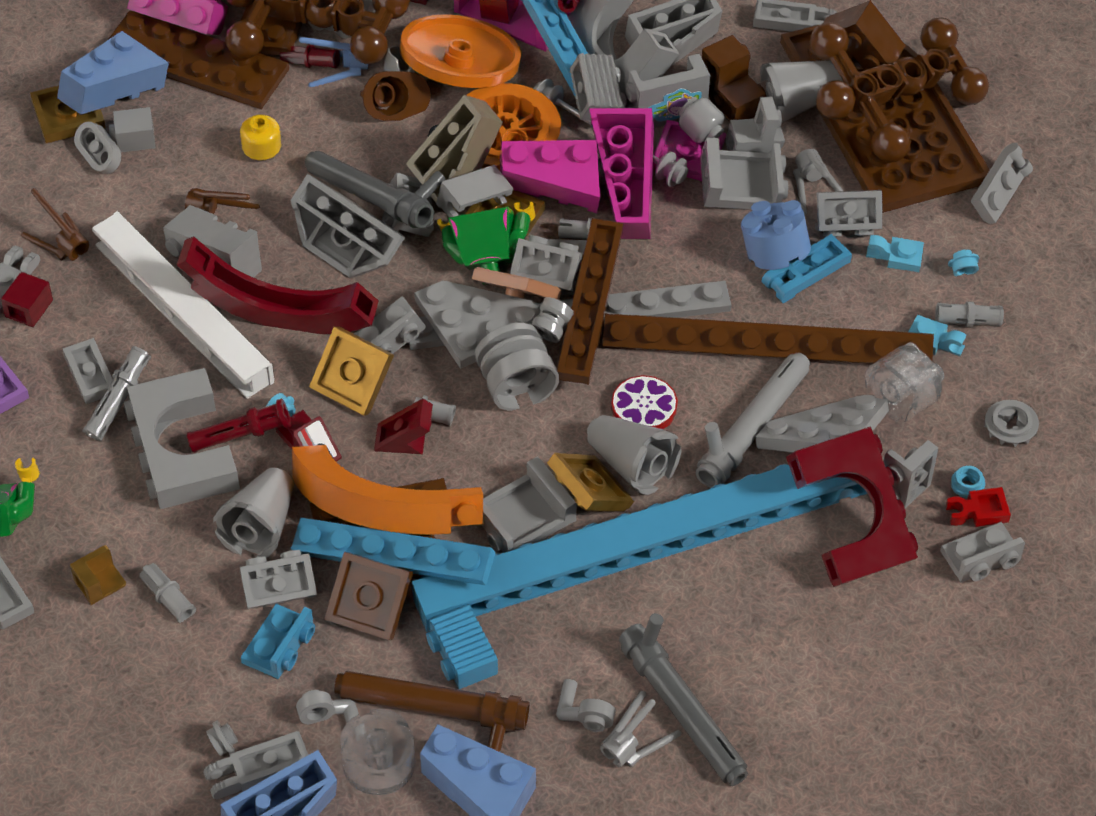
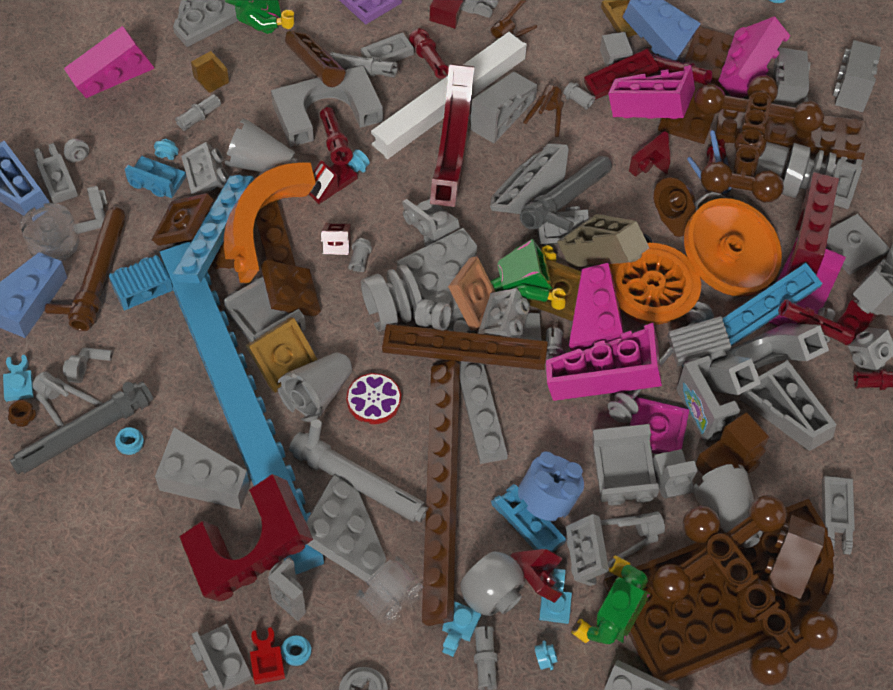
camera: 85 degrees right, 5 degrees up
(71, 696) = (108, 64): none -> dark pink wedge
(100, 153) = (589, 37): light grey plate -> none
(100, 322) = (426, 49): none -> dark red pin
(106, 438) = (315, 58): none -> reddish brown brick
(175, 128) = (602, 80): none -> dark red plate
(183, 66) = (700, 75): none -> dark red pin
(199, 175) = (578, 95): none -> light grey pin
(228, 90) = (653, 96): none -> dark pink wedge
(233, 626) = (165, 148): none -> medium azure plate
(260, 137) = (617, 125): yellow head -> none
(311, 109) = (654, 153): none -> dark red slope
(351, 371) = (387, 195): pearl gold plate -> none
(472, 189) = (564, 255): light grey hinge -> none
(492, 474) = (290, 288): none -> reddish brown plate
(609, 786) = (18, 382): none -> medium azure plate
(662, 769) = (21, 407): none -> reddish brown plate
(700, 644) = (129, 433): none -> medium azure plate
(701, 119) = (680, 427): light grey head -> none
(750, 570) = (200, 473): none -> light grey wedge
(869, 259) = (537, 569): none -> dark red slope
(893, 293) = (493, 584): none -> light grey wheel
(923, 181) = (619, 608): none -> green torso

